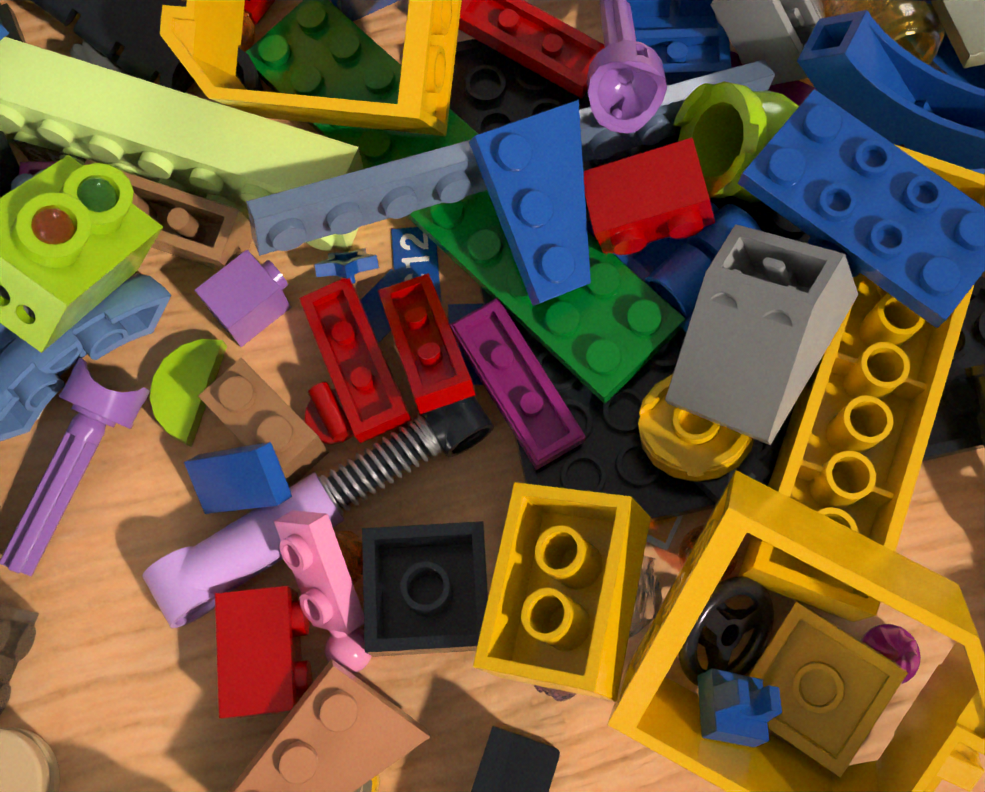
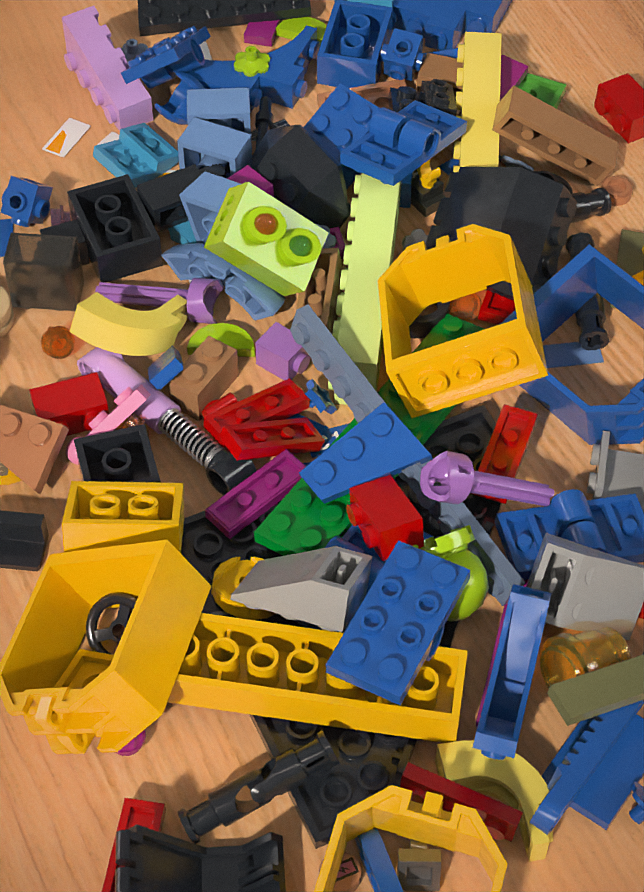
camera: 75 degrees right, 20 degrees down
(108, 655) = (57, 342): none -> clear orange plate
(146, 534) = (128, 330): none -> light yellow arch
(736, 707) = (73, 632): blue tile -> none

